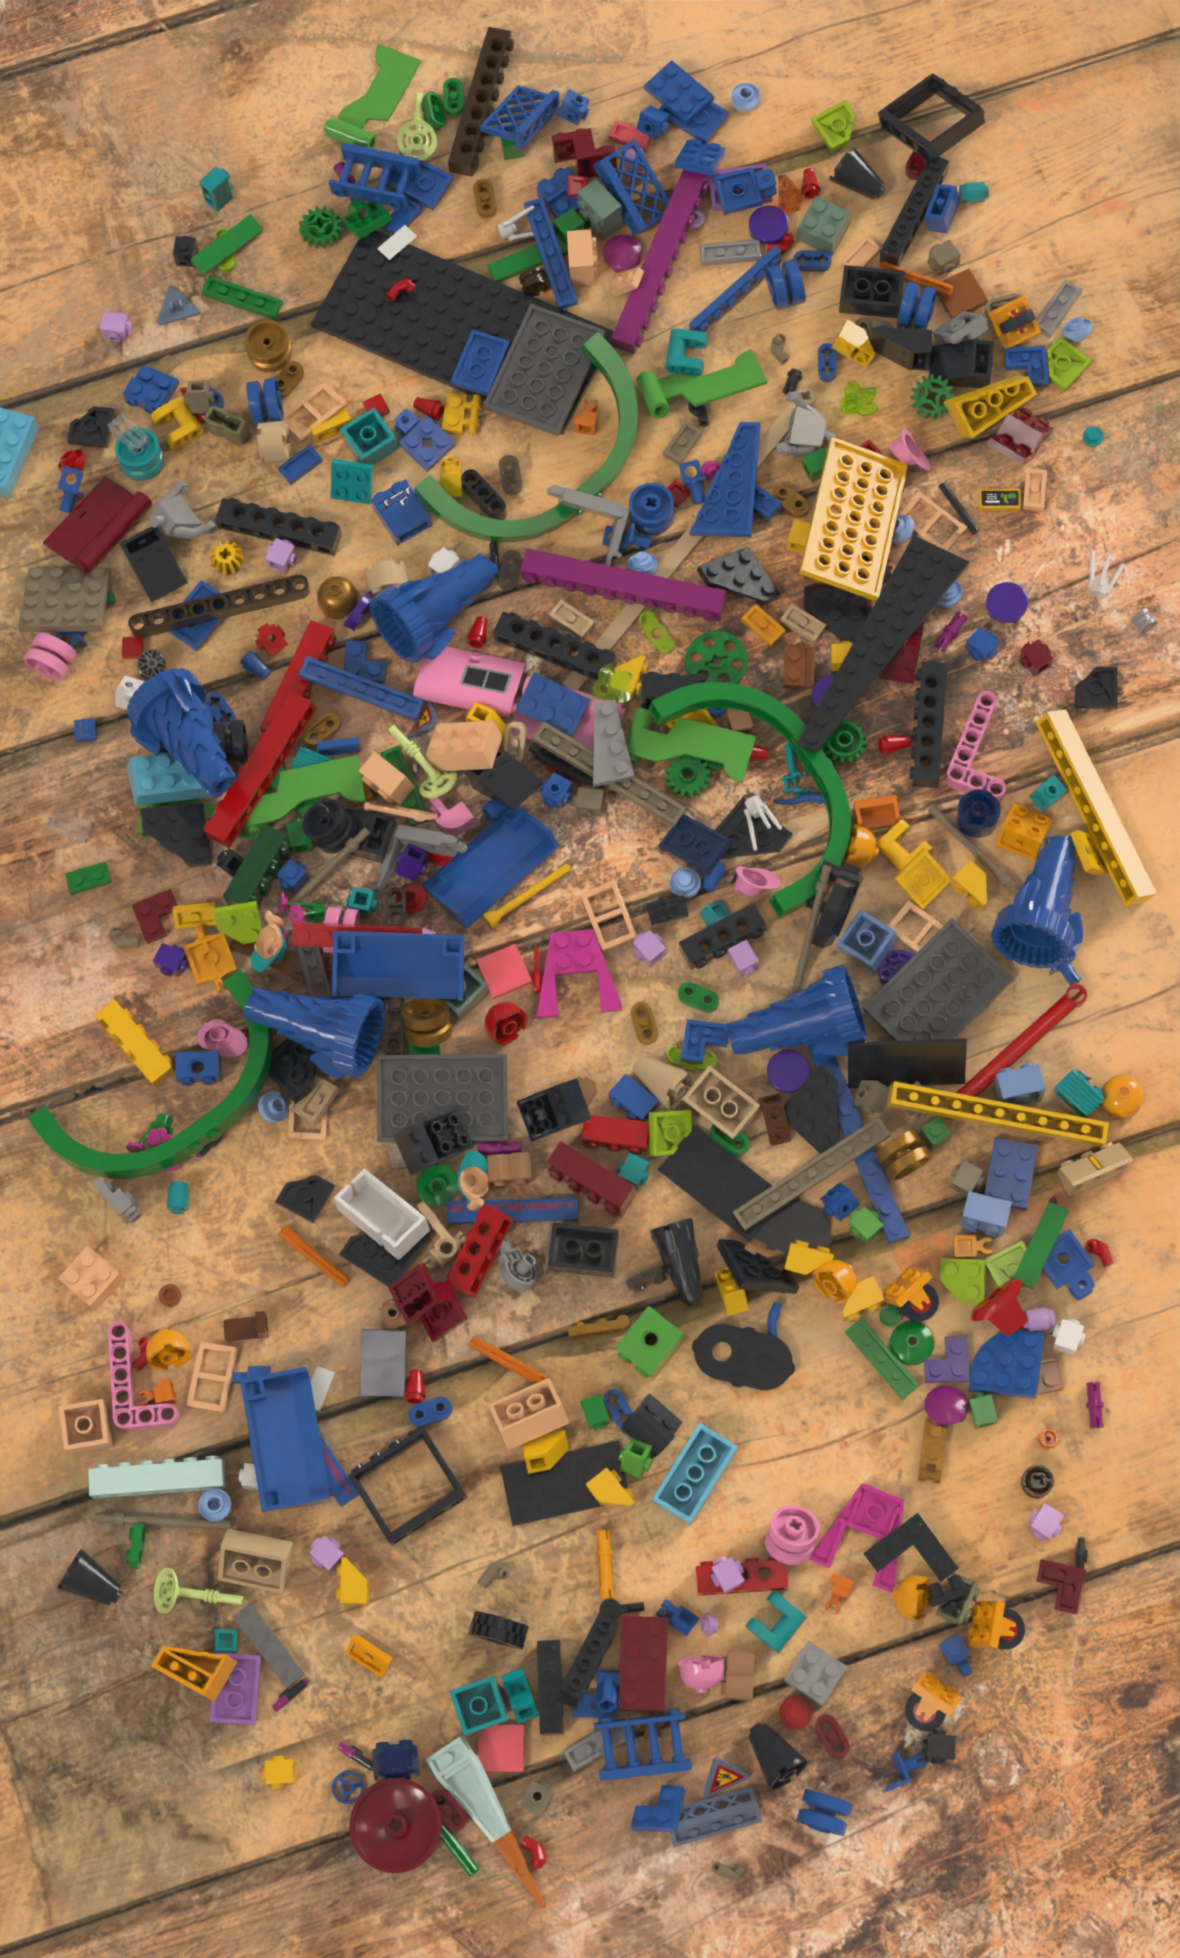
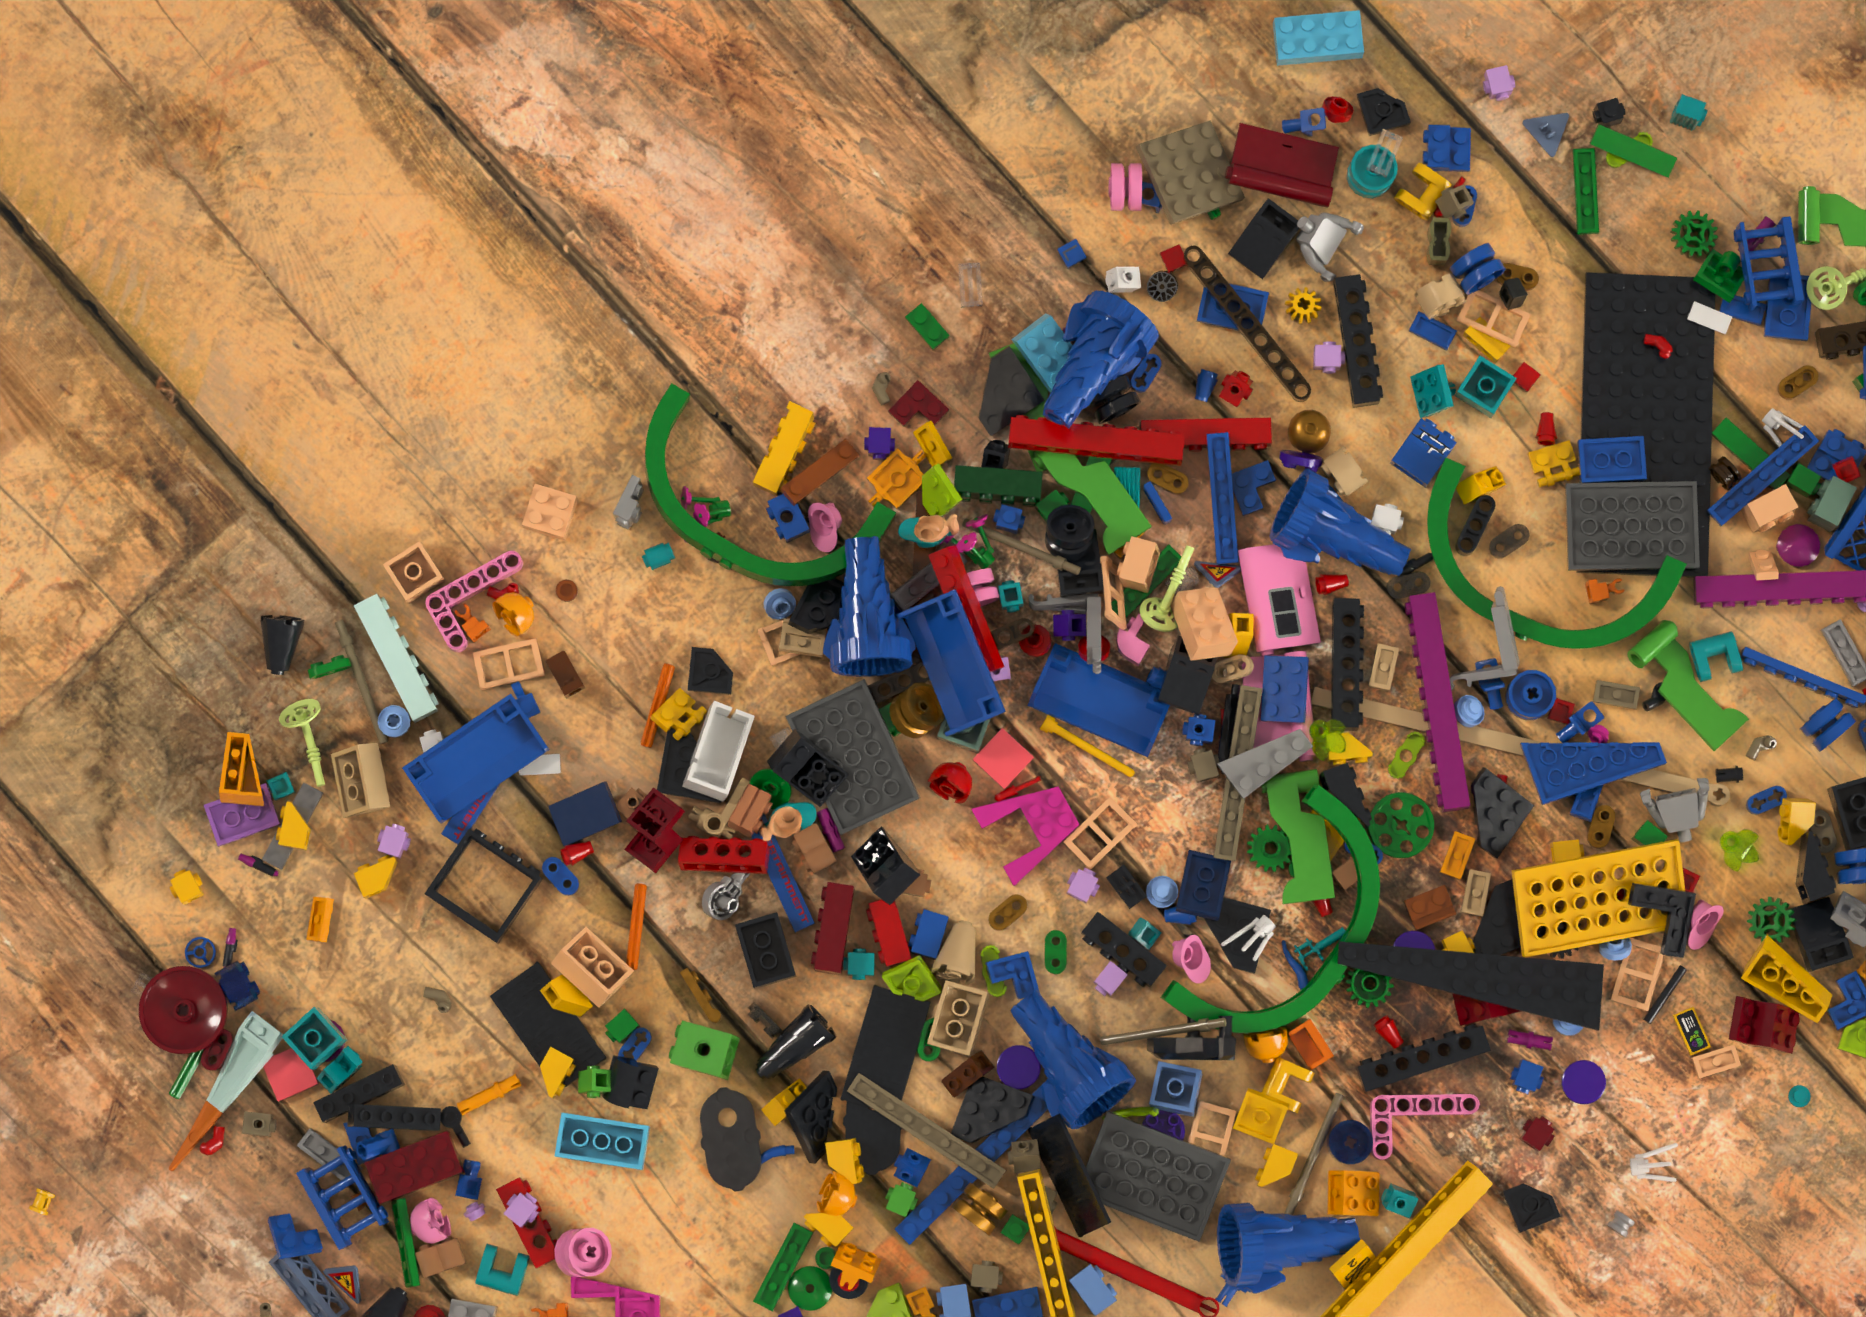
camera: 60 degrees right, 10 degrees up
(171, 1022) = (819, 472): none -> dark orange plate
(268, 346) = (1538, 255): pearl gold wheel -> none
(272, 1641) = (294, 829): none -> yellow slope
(300, 386) = (1513, 293): none -> pearl dark grey slope
(324, 1240) = (670, 713): none -> yellow plate
(415, 431) = (1510, 428): blue plate -> none
(449, 1210) = (750, 810): none -> nougat brick
(498, 1630) = (387, 1025): black wheel -> none
(711, 1703) = (405, 1243): none -> green tile
(874, 982) = (1138, 1111): none -> lime animal
(891, 461) = (1679, 908): none -> black plate

